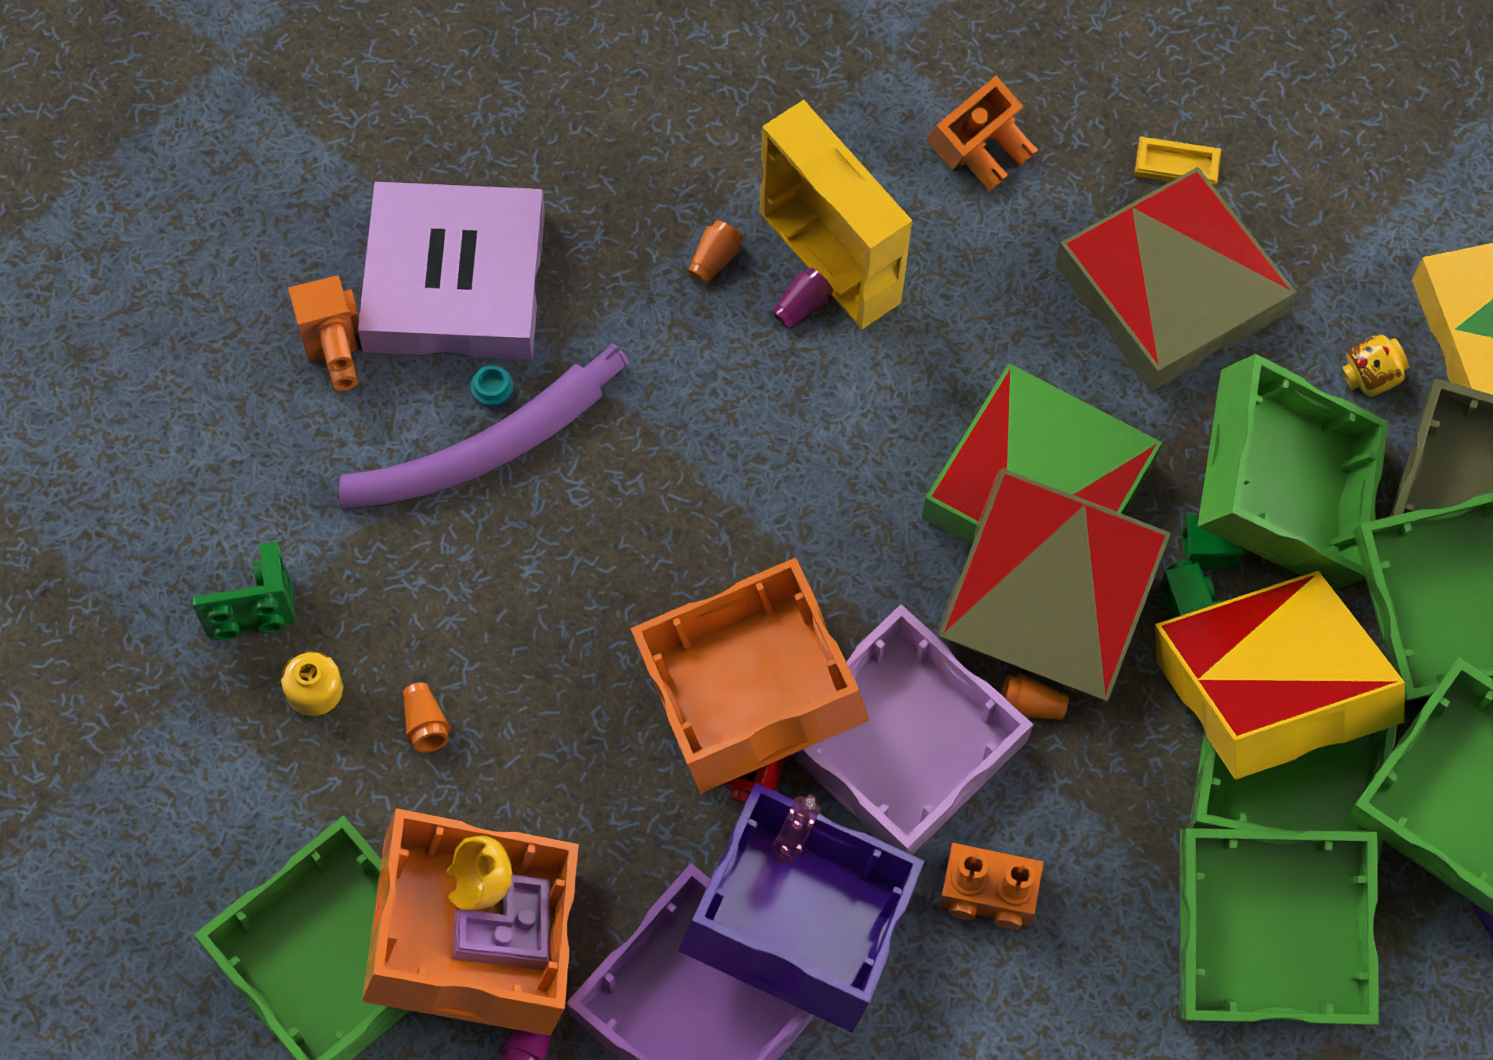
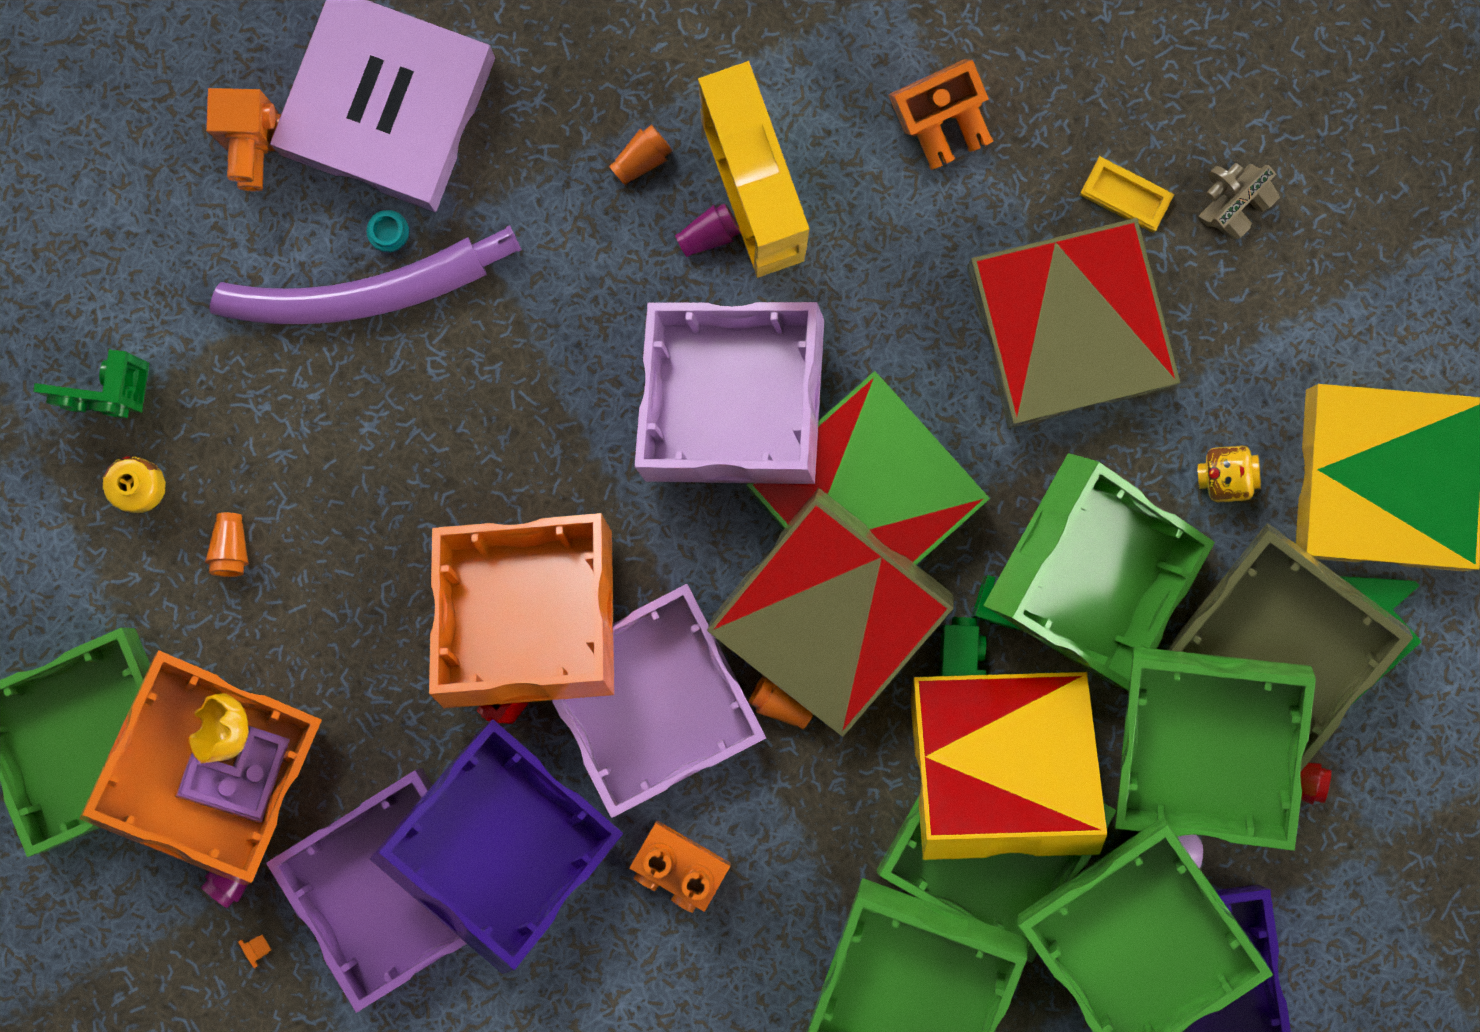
camera: 20 degrees right, 20 degrees up
(796, 829) = (513, 775): clear pink axle -> none
(880, 420) = (731, 393): none -> lavender tile
(1273, 129) = (1233, 192): none -> dark tan hips

